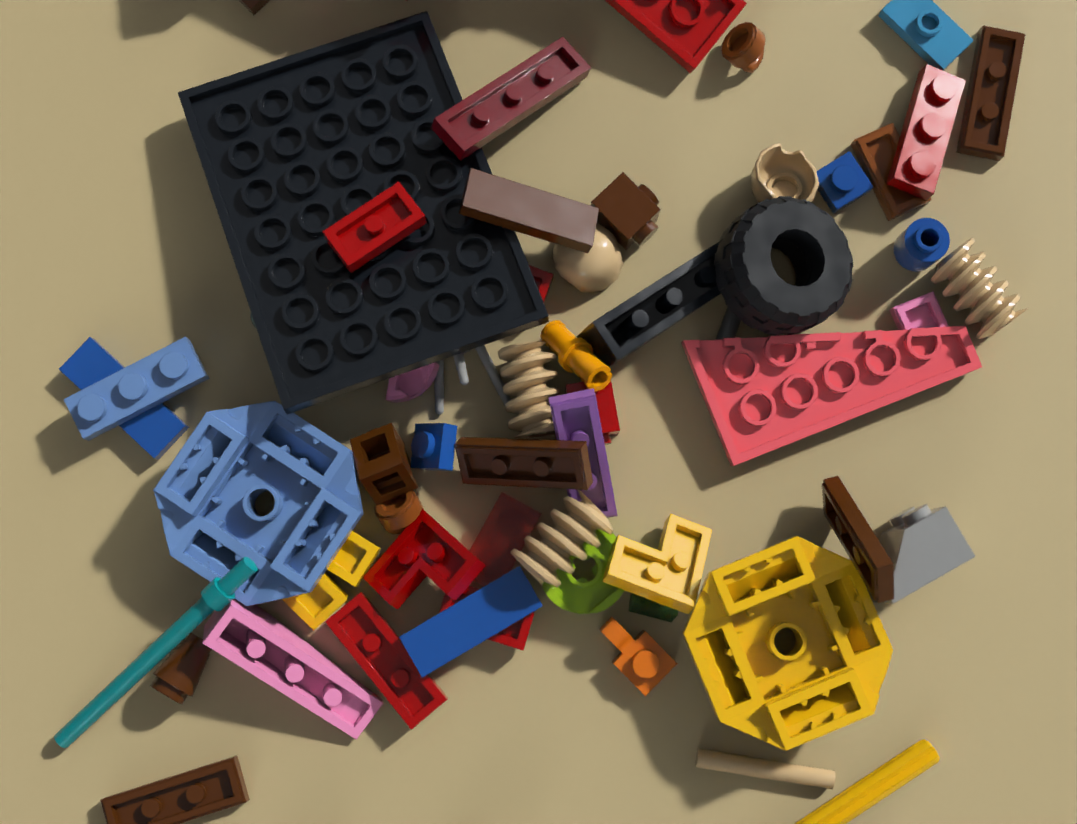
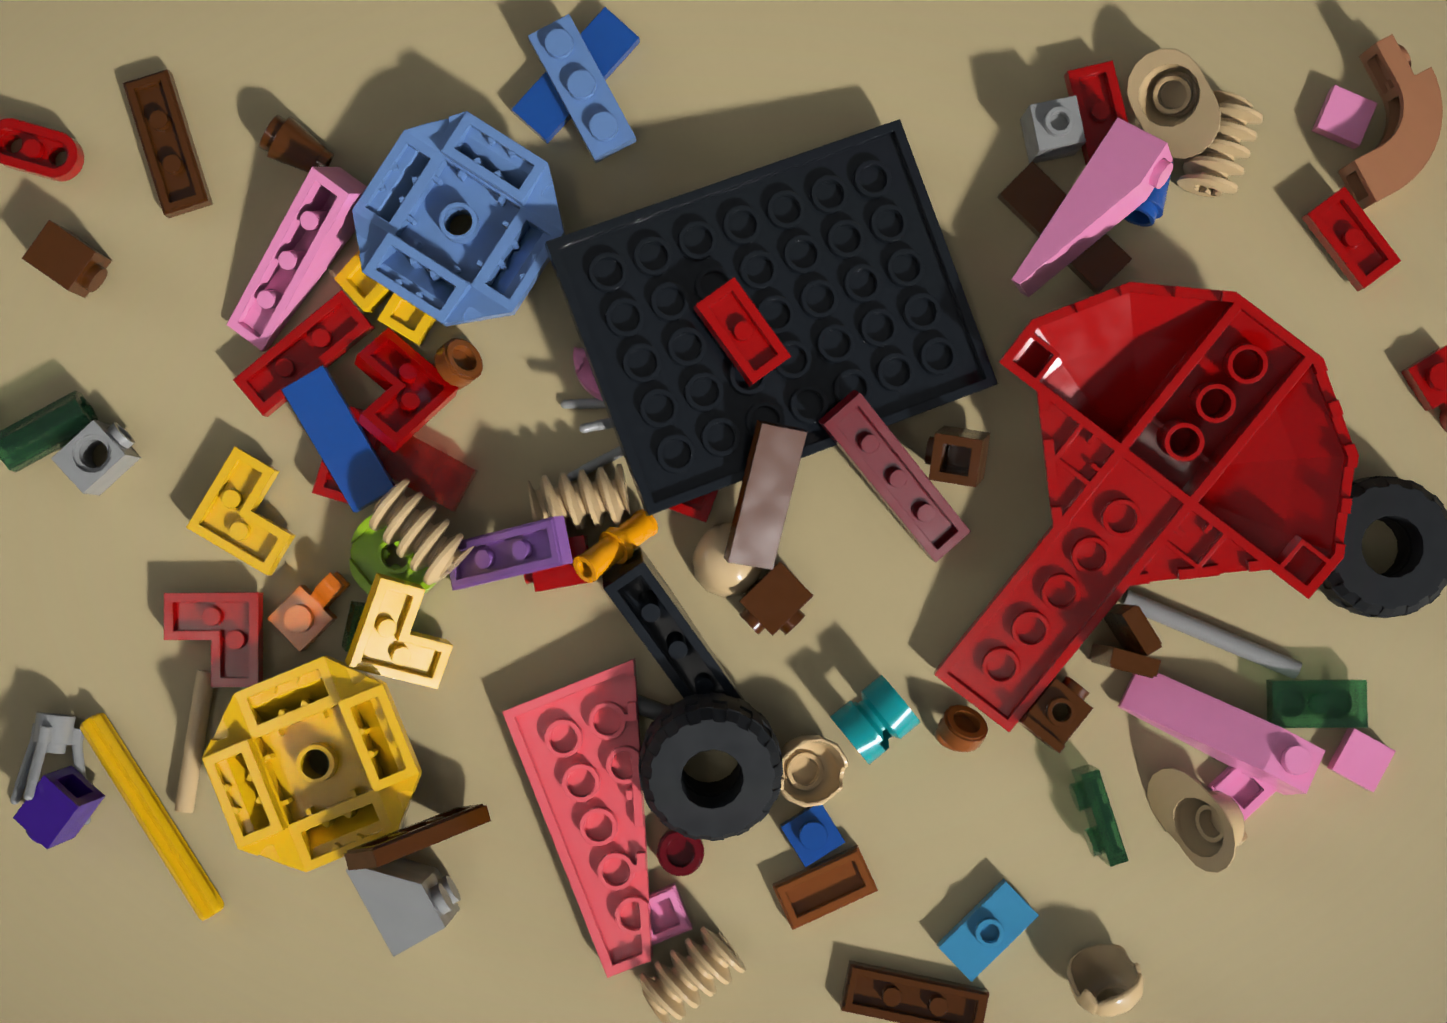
camera: 85 degrees right, 5 degrees up
(214, 598) = (358, 176): teal bar -> none
(383, 463) = (503, 345): reddish brown brick -> none
(433, 446) = (522, 398): blue plate -> none
(493, 43) = (957, 455): none -> reddish brown brick
(524, 462) = (500, 492): reddish brown tile -> none
(544, 733) = (230, 516): none -> yellow plate
(649, 732) = (231, 623): none -> red plate
(735, 119) = (875, 719): none -> teal wheel
(862, 303) = (679, 853): none -> dark red tile
(921, 244) = (739, 901): blue brick -> none
(926, 132) = (866, 926): plate -> none

